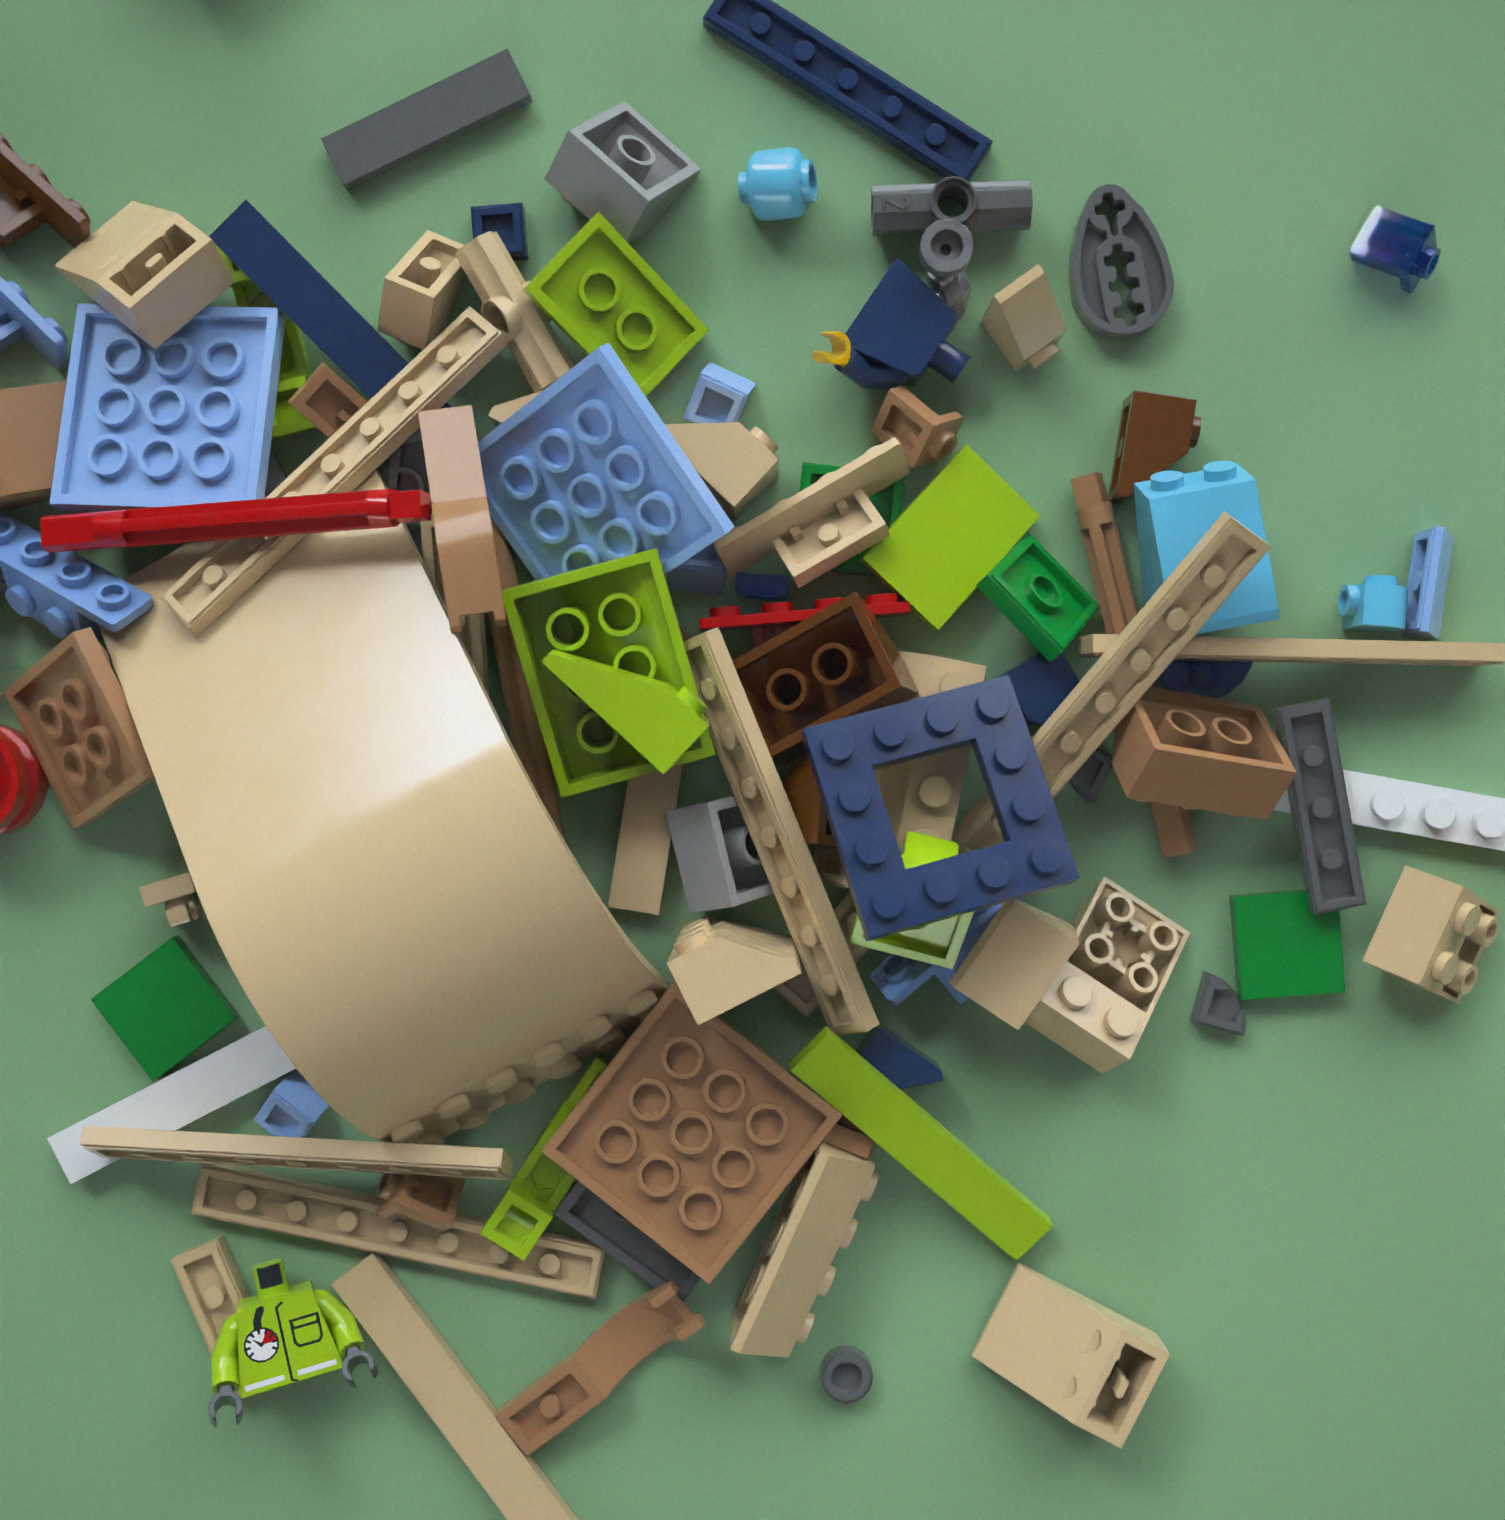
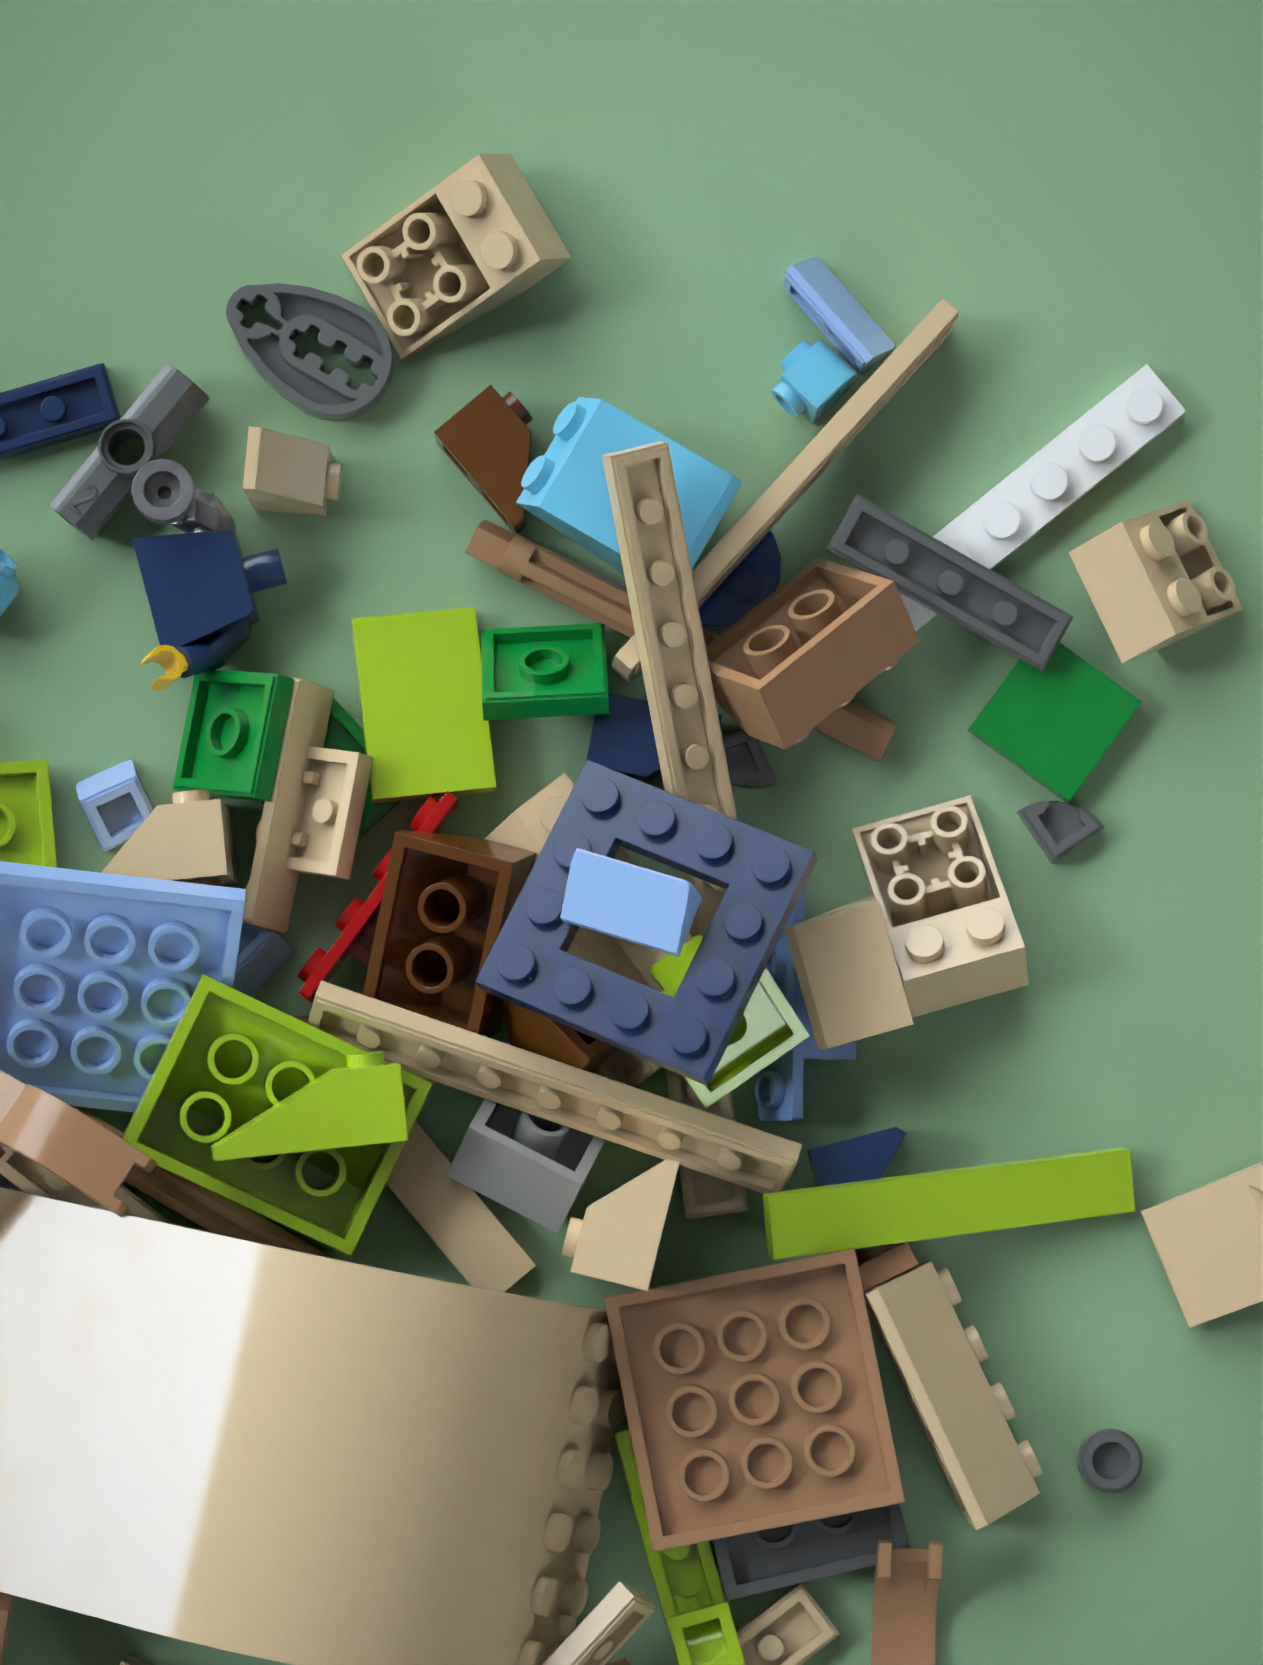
camera: 50 degrees left, 5 degrees down
(761, 586) = (319, 912): clear blue tile -> none
(828, 433) = (233, 734): none -> green tile
(917, 427) = (301, 650): medium nougat bracket -> none
(943, 786) = (629, 902): none -> light blue slope
(1260, 304) = (456, 253): none -> tan slope
(1397, 247) = (512, 90): clear blue bracket -> none

